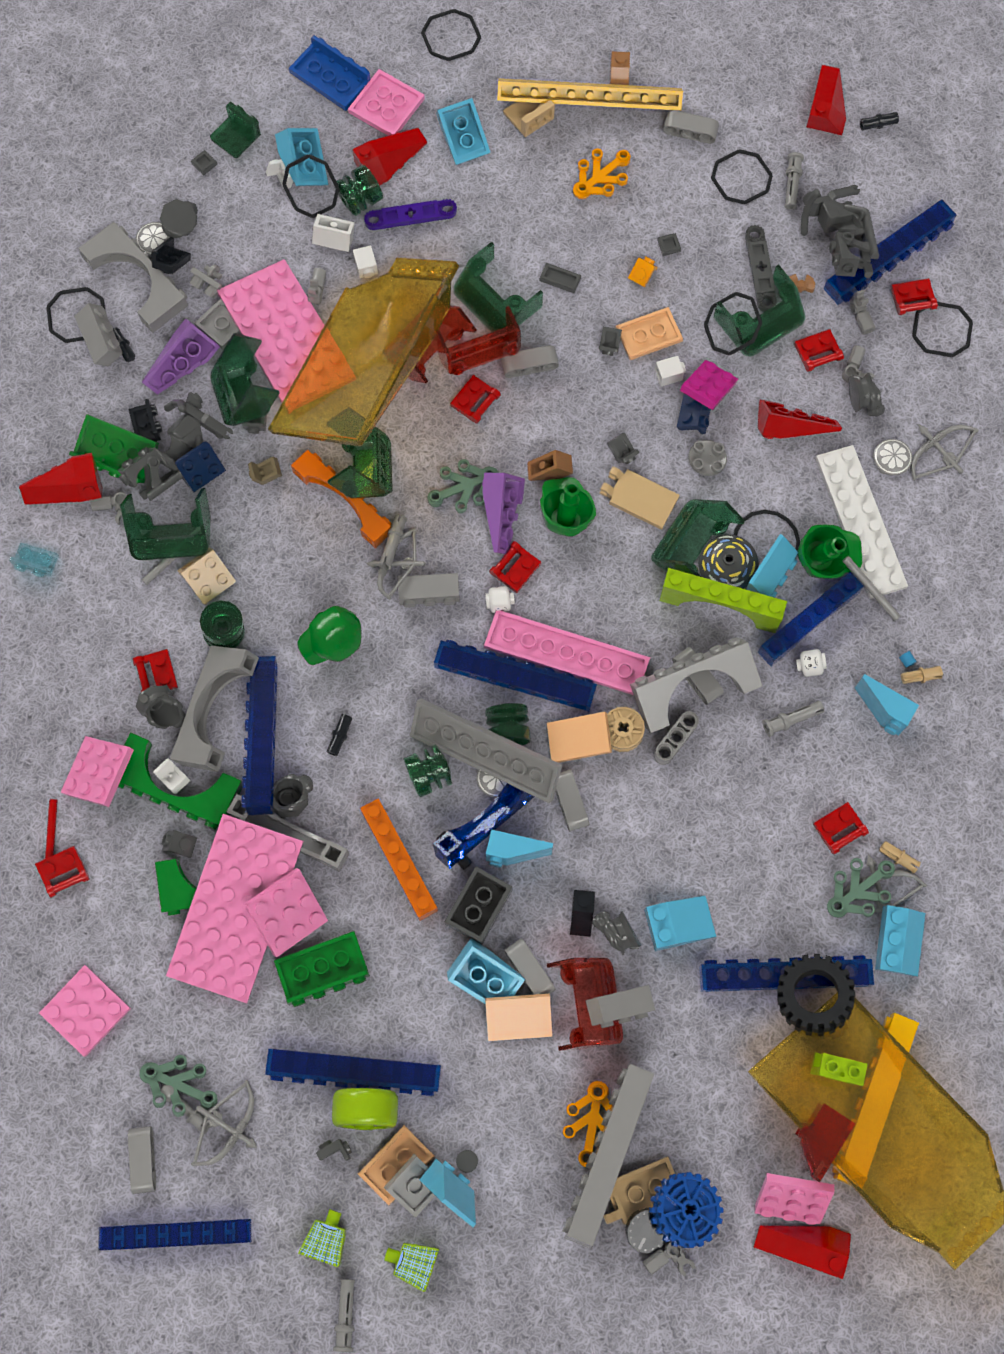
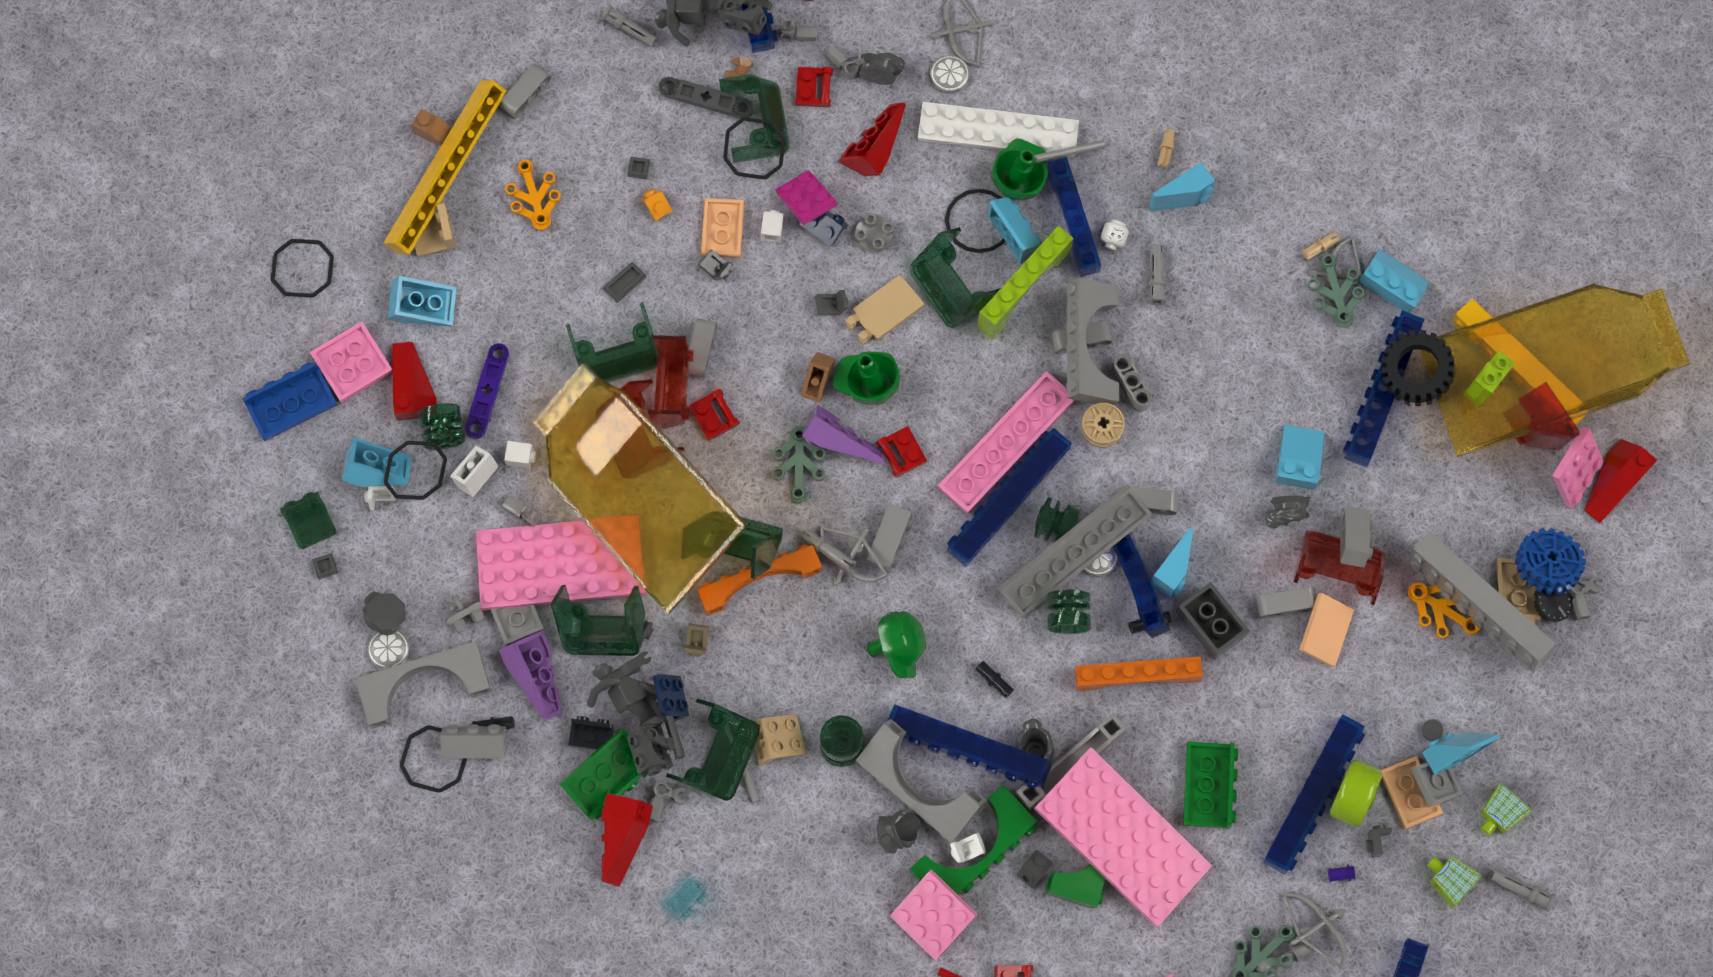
camera: 65 degrees left, 0 degrees up
(161, 669) = (857, 819): red plate -> none
(168, 258) = (424, 639): black bracket -> none
(286, 912) = (1148, 791): bright pink plate -> none
(288, 1129) = (1341, 873): none -> dark purple pin
(483, 973) = (1275, 643): medium azure slope -> none
(499, 599) = (928, 479): white head -> none
(579, 737) = (1094, 466): light nougat tile -> none
(582, 913) = (1256, 535): black slope -> none
(713, 561) = (981, 274): dark grey dish -> none
(731, 155) = (599, 45): black piece -> none
(835, 823) = (1266, 283): red plate -> none
(907, 659) = (1146, 153): dark azure piece -> none

